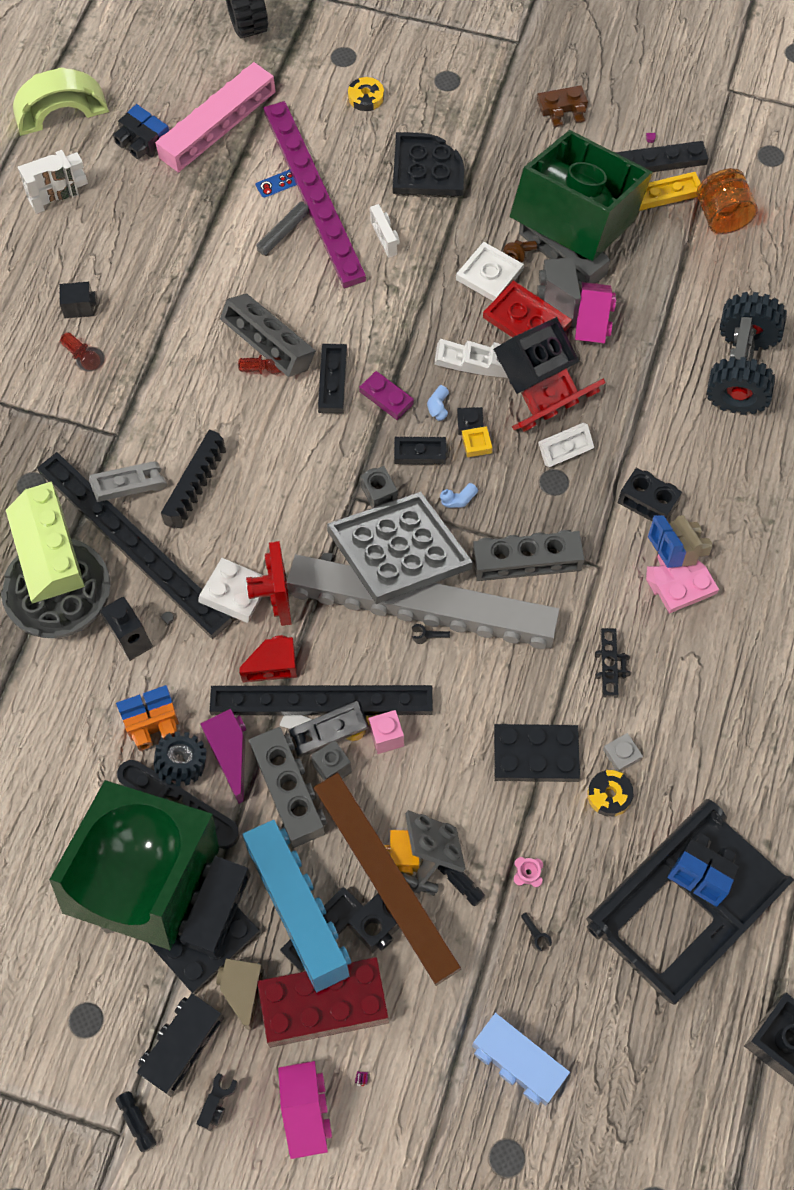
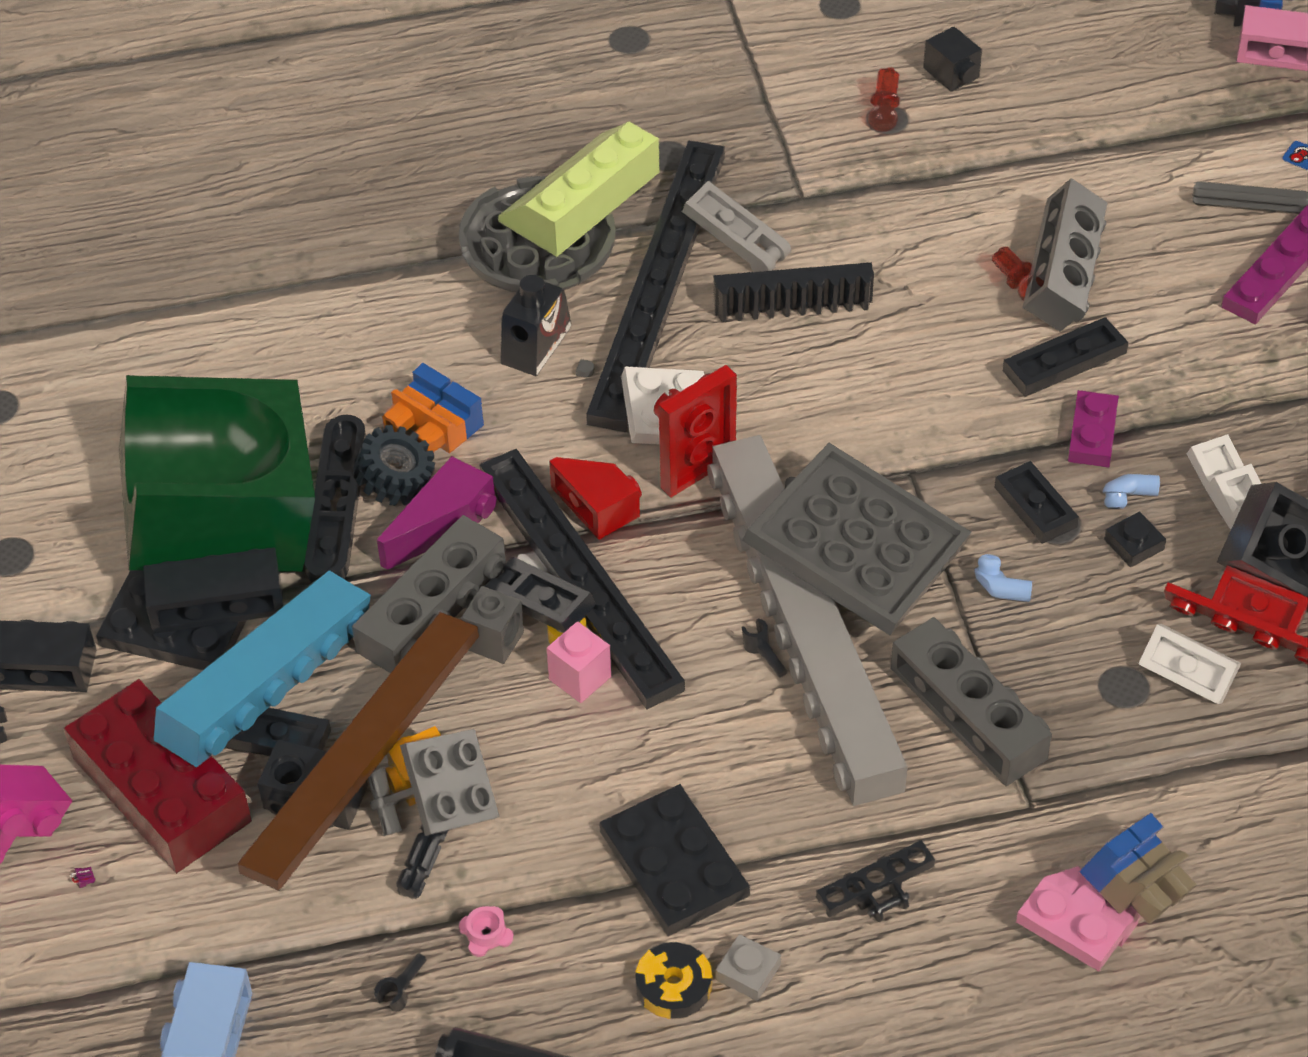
camera: 60 degrees right, 15 degrees down
(240, 988) = (122, 667): dark tan slope -> none
(381, 496) = (939, 480): dark grey brick -> none
(476, 441) = (1104, 558): yellow plate -> none
(646, 502) = (1184, 806): black brick -> none

